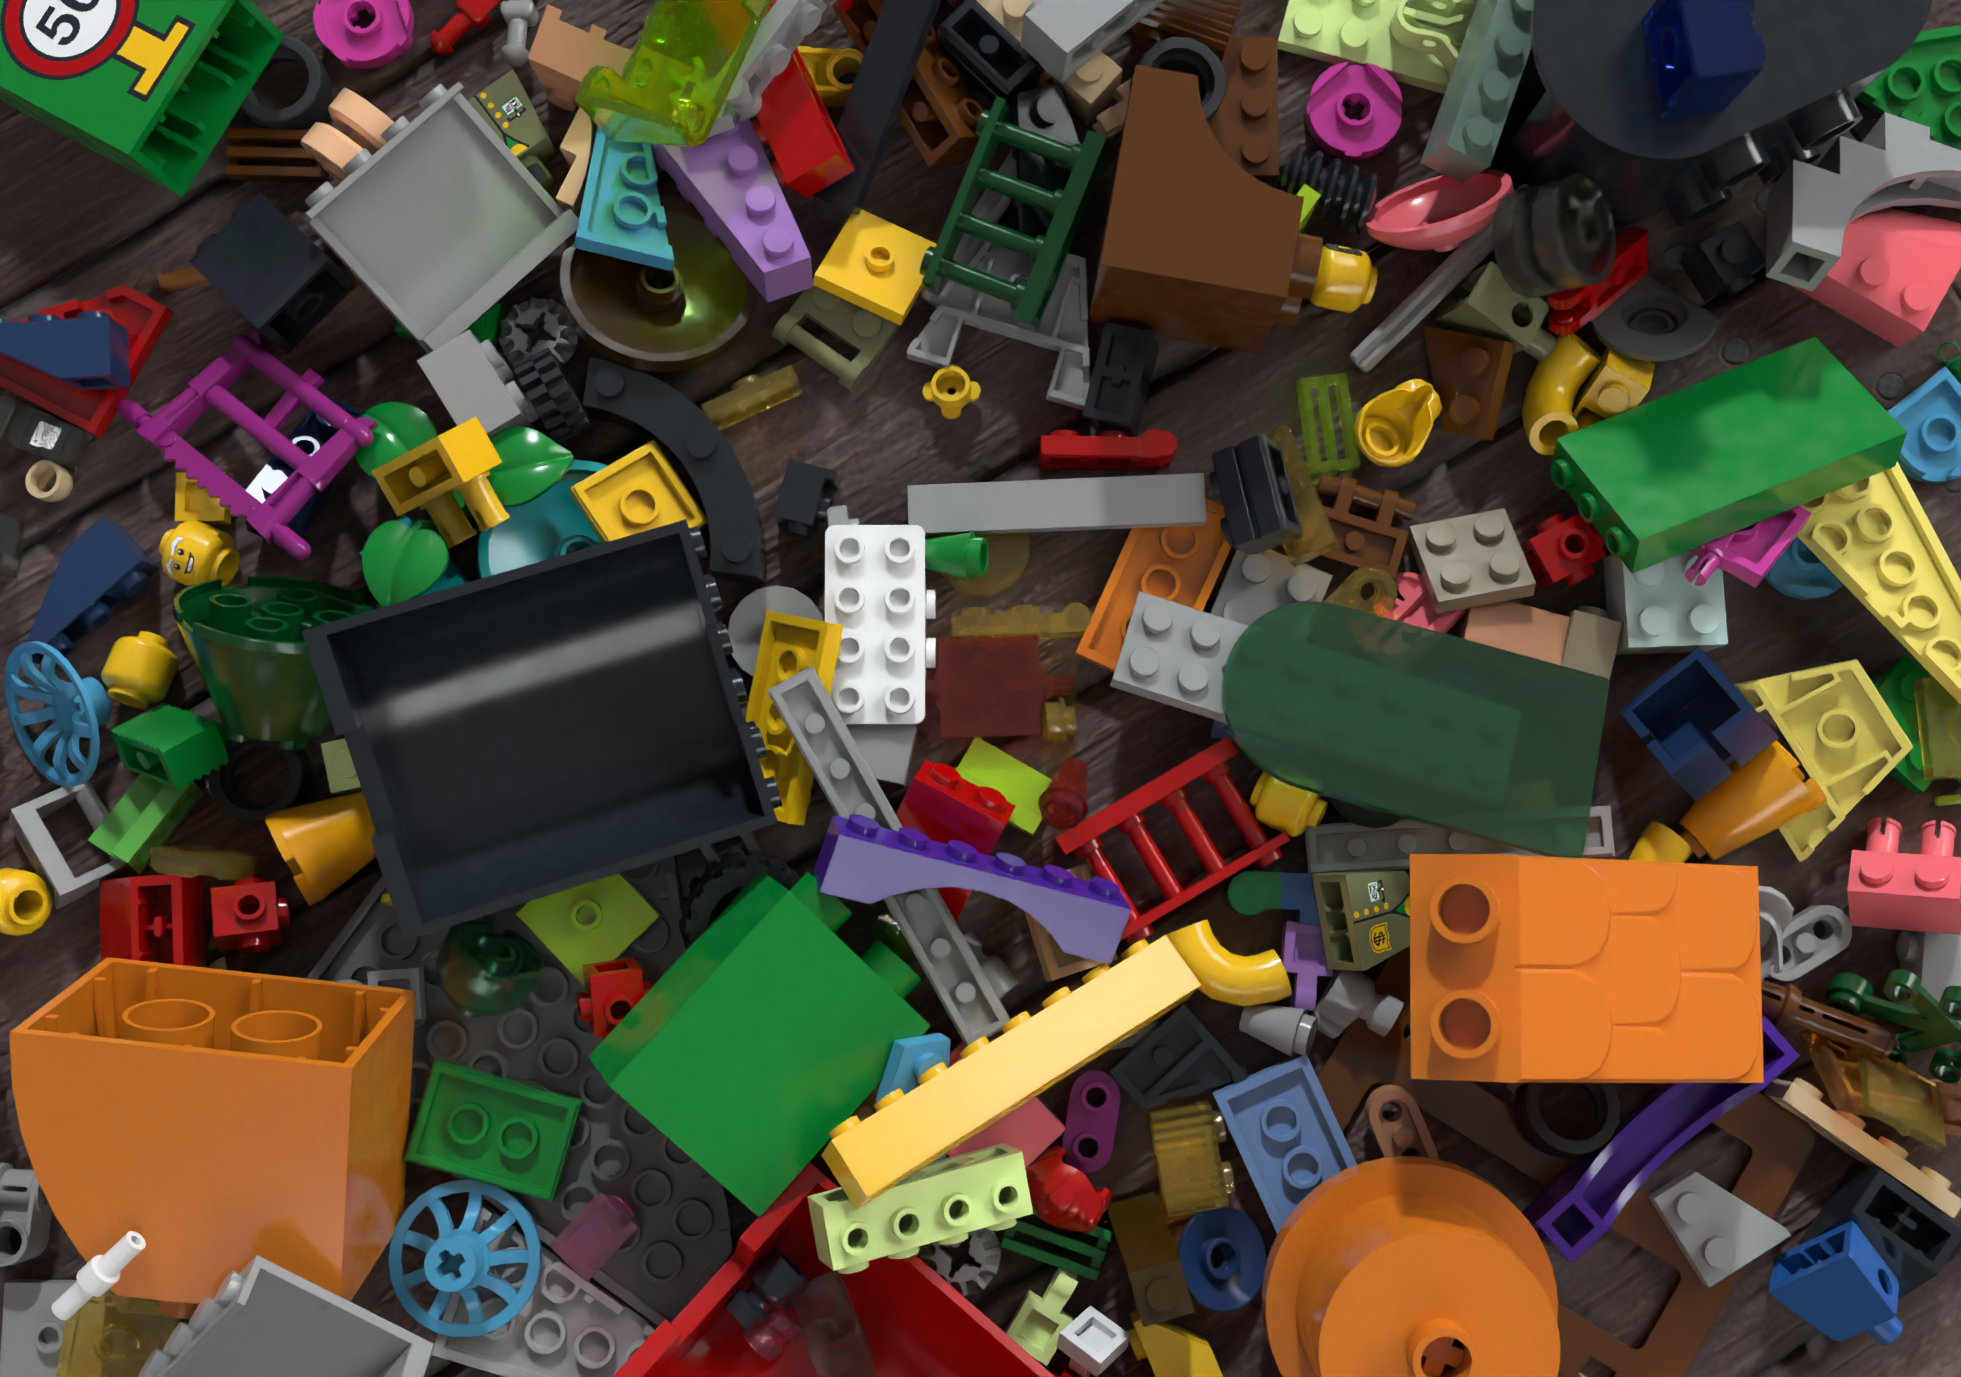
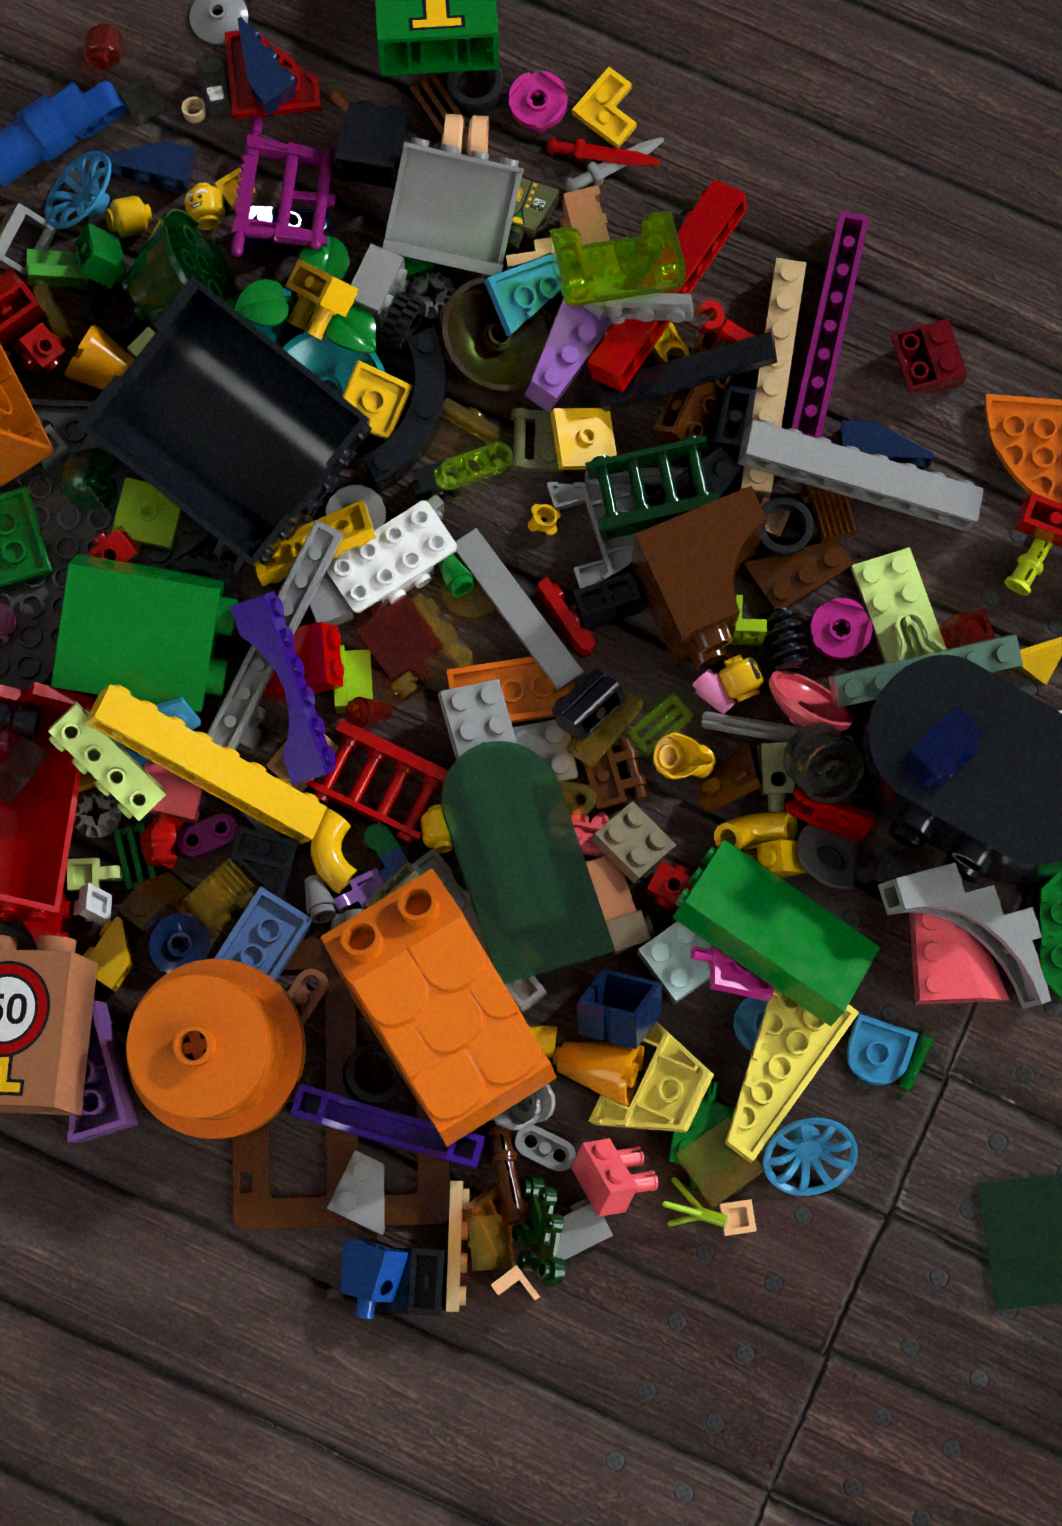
camera: 60 degrees right, 5 degrees down
(810, 446) = (467, 475): none -> clear neon green beam
(1329, 325) = (712, 690): none -> bright pink cone

